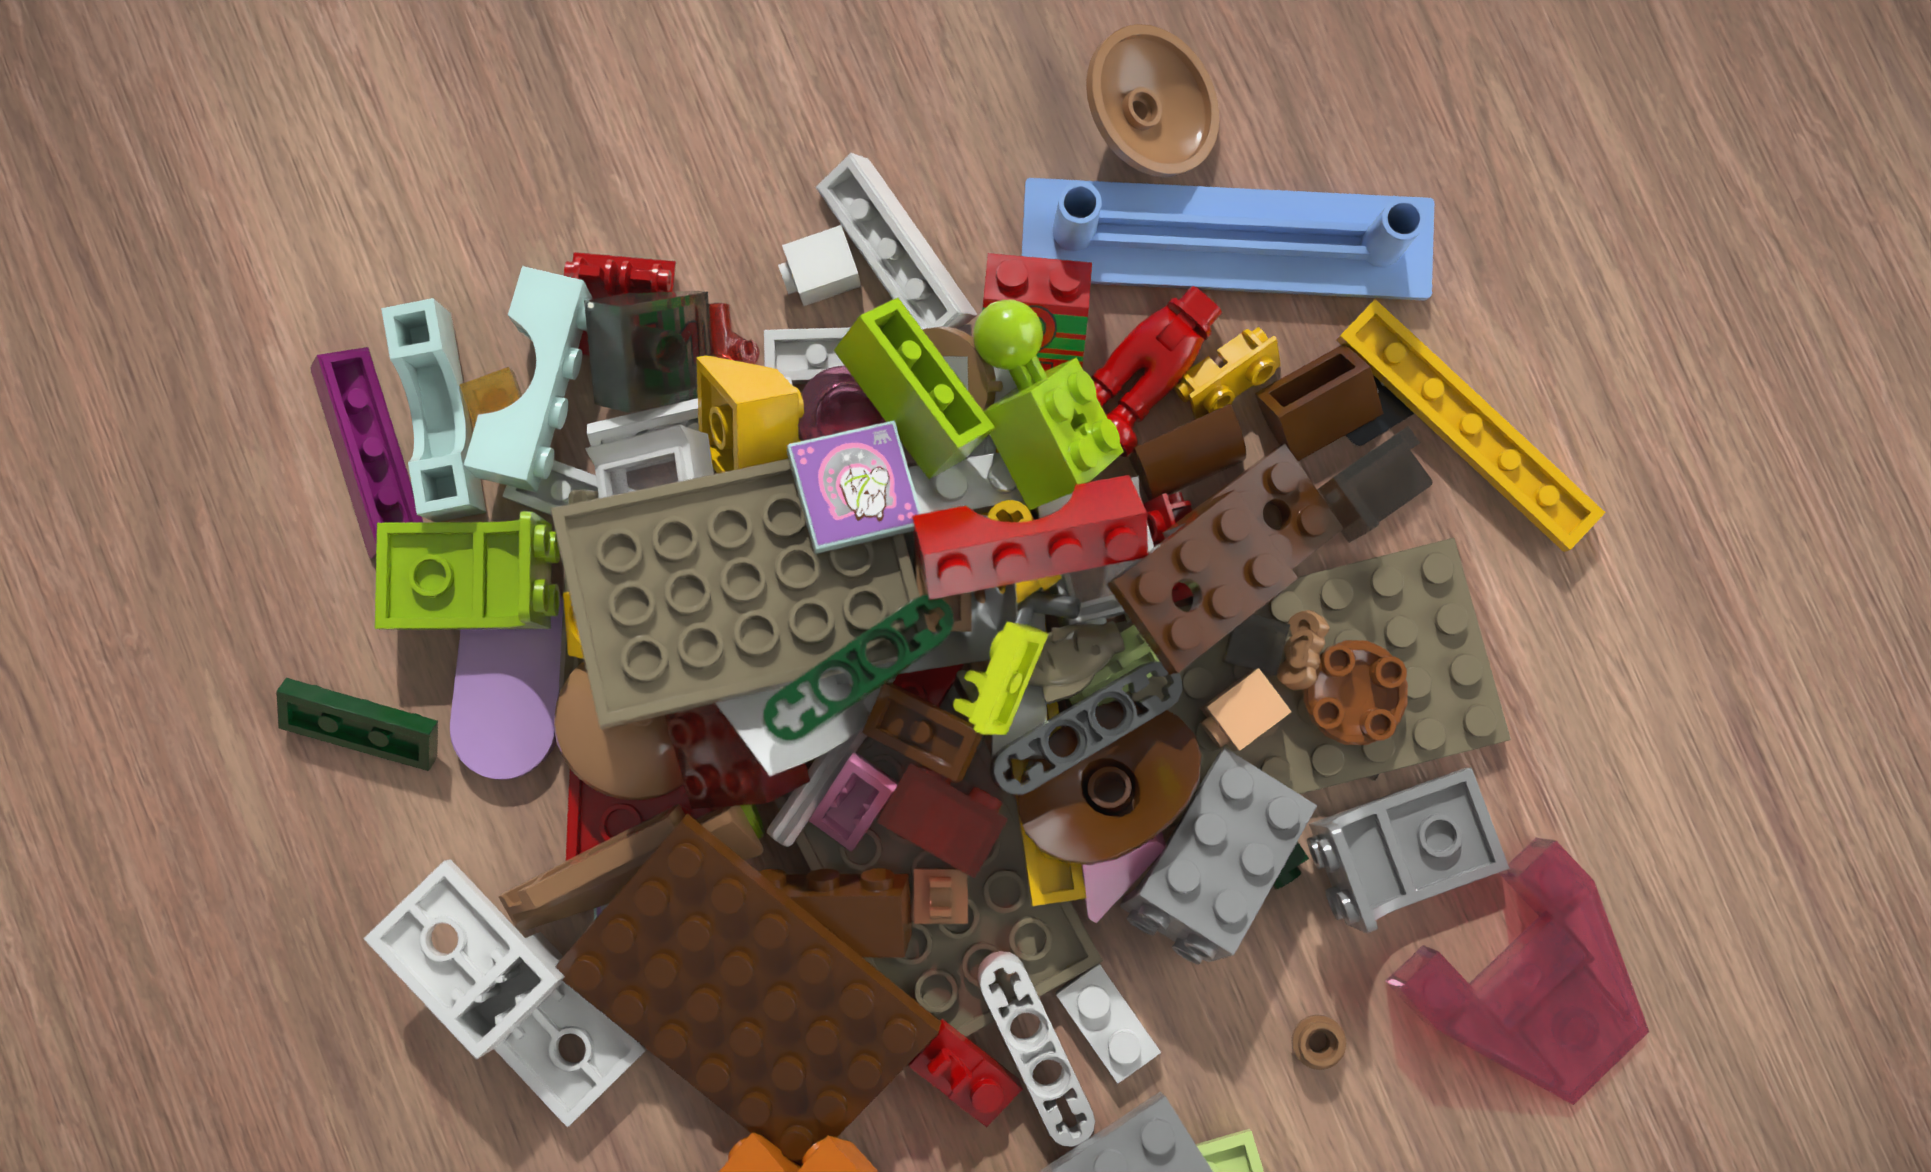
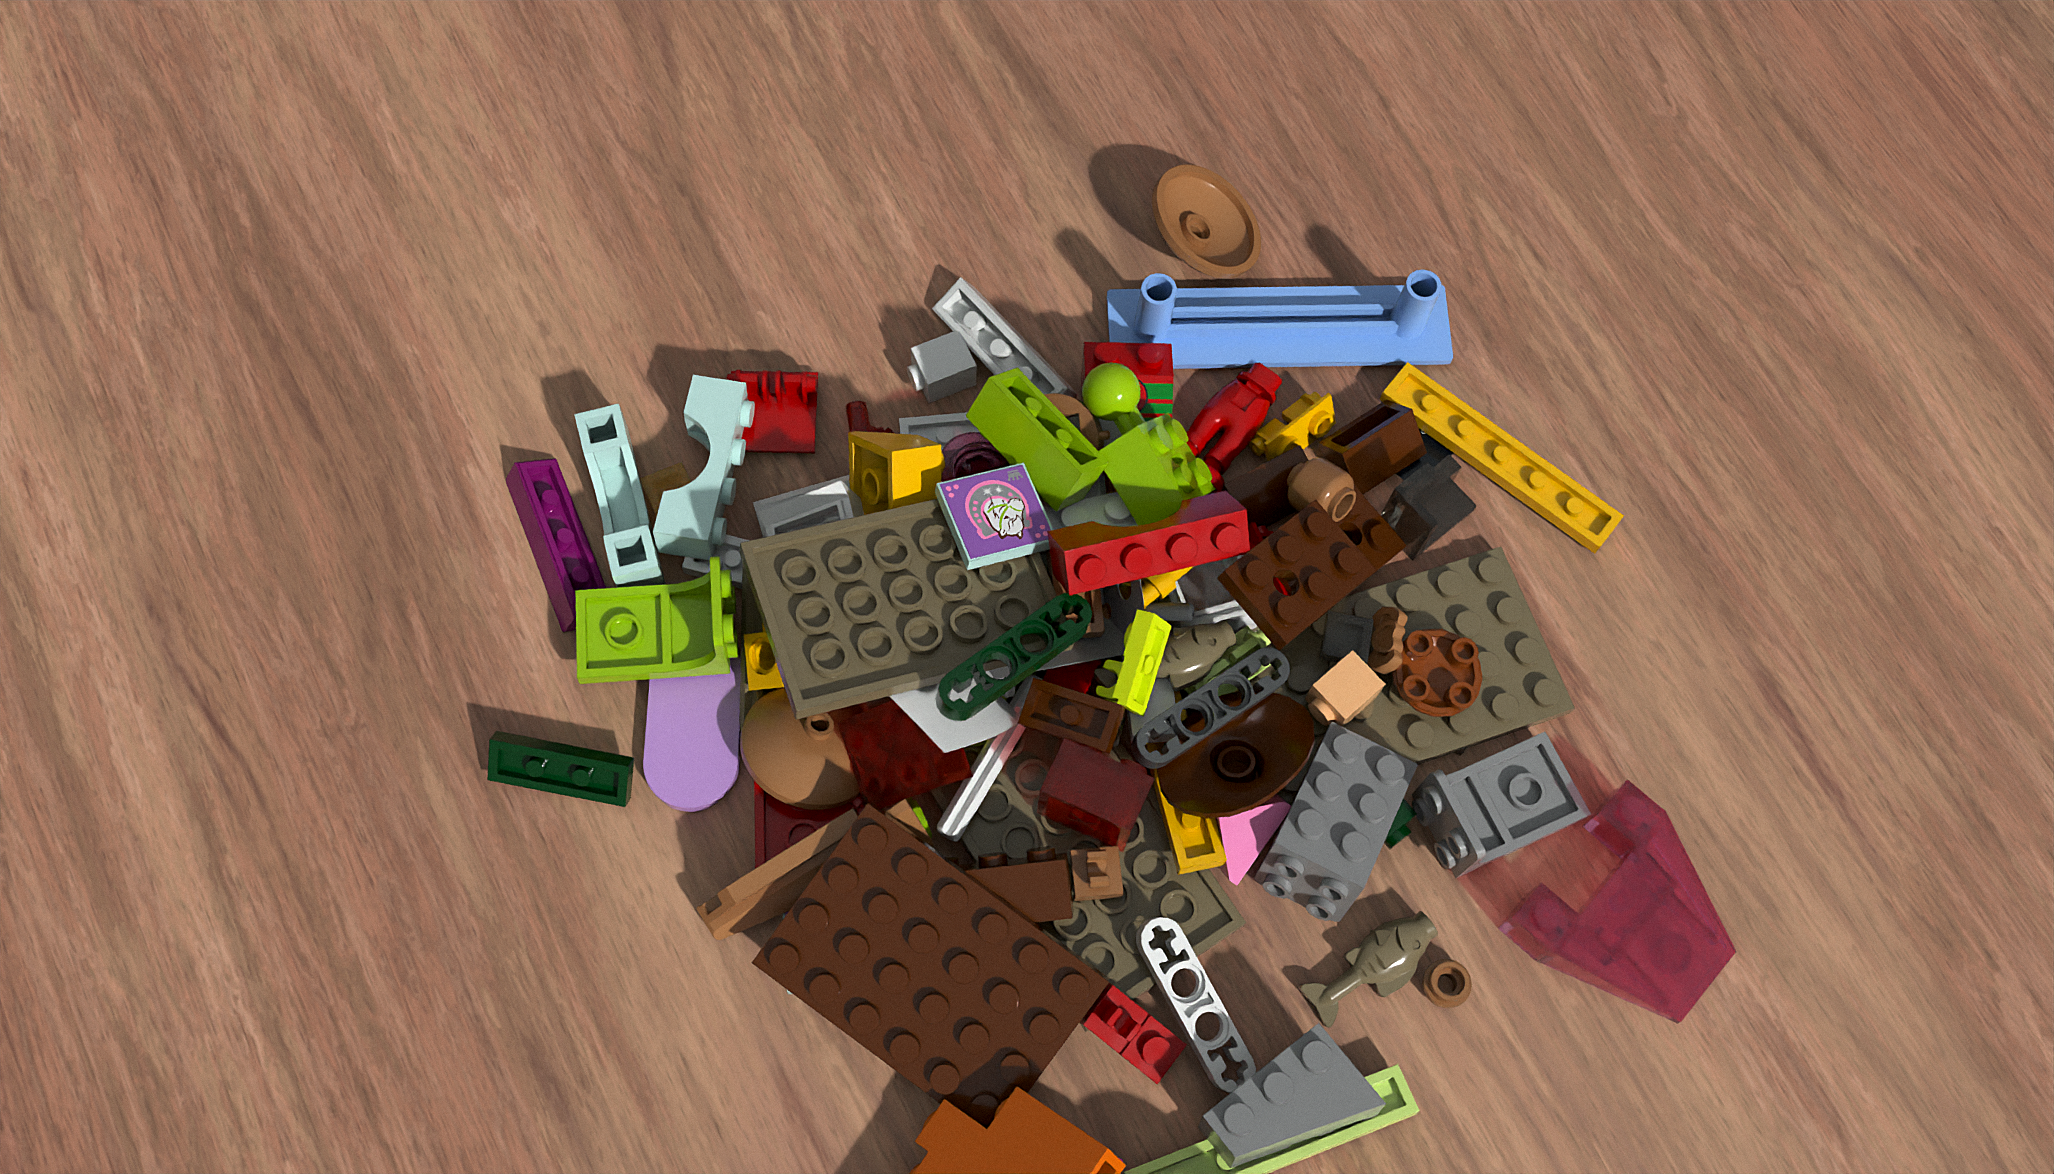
camera: 10 degrees left, 15 degrees down
(502, 992) = (711, 988): white bracket -> none
(647, 347) = (801, 435): clear smoke slope -> none
(853, 801) = (1012, 791): bright pink slope -> none
(1107, 1022) = (1255, 982): white plate -> none
(1249, 464) = (1325, 483): none -> medium nougat head
(1251, 1009) = (1383, 959): none -> dark tan animal

